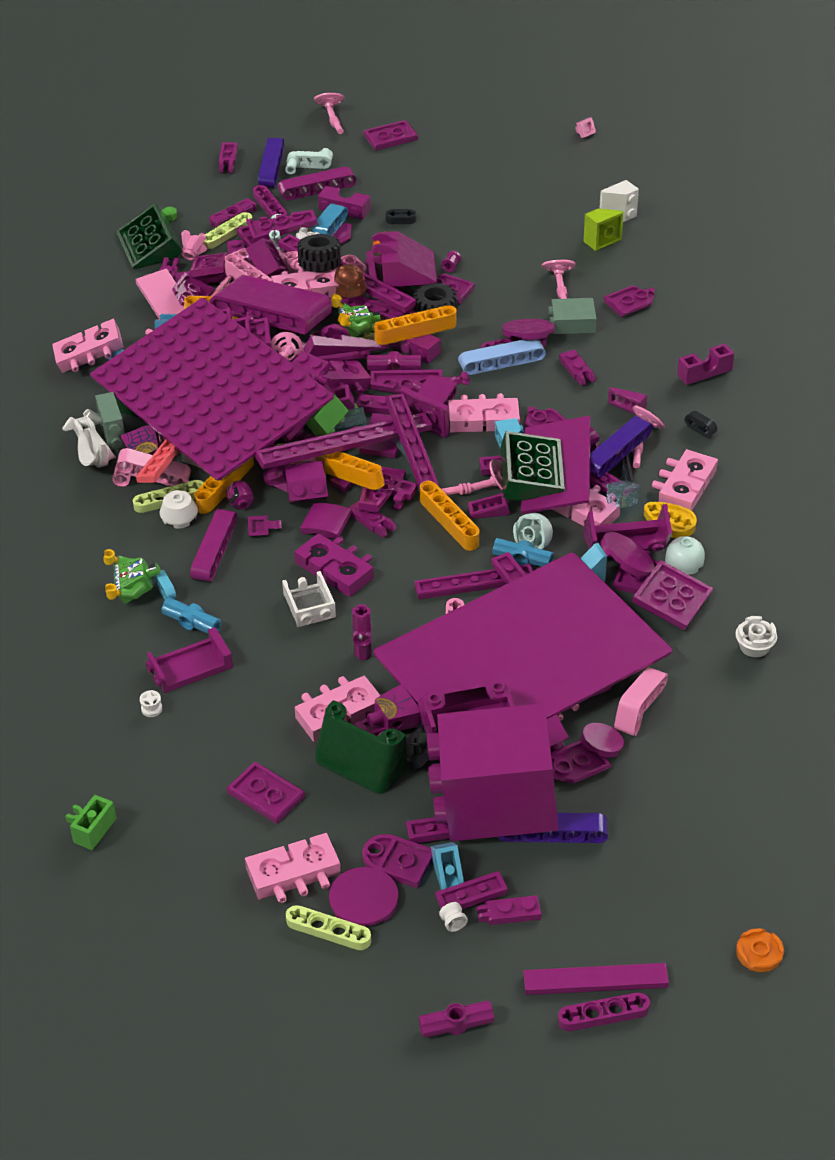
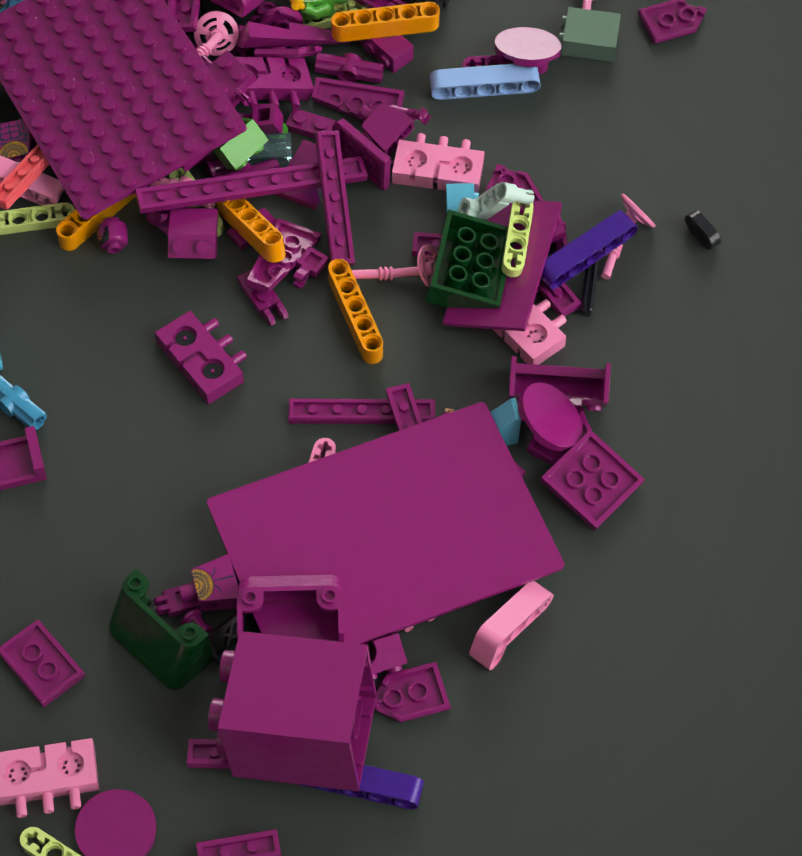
camera: 10 degrees right, 15 degrees up
(178, 509) = (35, 243): white cone -> none
(213, 545) = (64, 302): magenta beam -> none
(259, 525) = (125, 284): magenta plate -> none
(310, 602) = (156, 405): white window -> none
(326, 519) = (207, 289): magenta slope -> none
(356, 696) = (158, 559): bright pink piece -> none
(362, 632) = (200, 470): magenta piece -> none
(398, 858) = (170, 786): magenta tile -> none
(447, 865) = (220, 809): medium azure slope -> none
(495, 505) = (416, 313): magenta slope -> none
(523, 552) = (429, 383): dark azure piece -> none
(533, 528) = (449, 357): light aqua cylinder -> none
(540, 418) = (486, 204): none -> light aqua beam
(560, 441) = (517, 236): none -> yellowish green beam
(577, 367) = (574, 112): magenta hinge -> none
(602, 739) = (449, 671): magenta tile -> none
(625, 491) = (574, 320): clear light blue hinge -> none
(636, 399) = (622, 178): magenta slope -> none
(681, 519) = (636, 359): yellow piece -> none
(685, 554) = (625, 424): light aqua cylinder -> none
(687, 480) = (659, 312): bright pink piece -> none
(718, 361) = (751, 139): magenta arch -> none
(756, 636) = (674, 561): white cone -> none

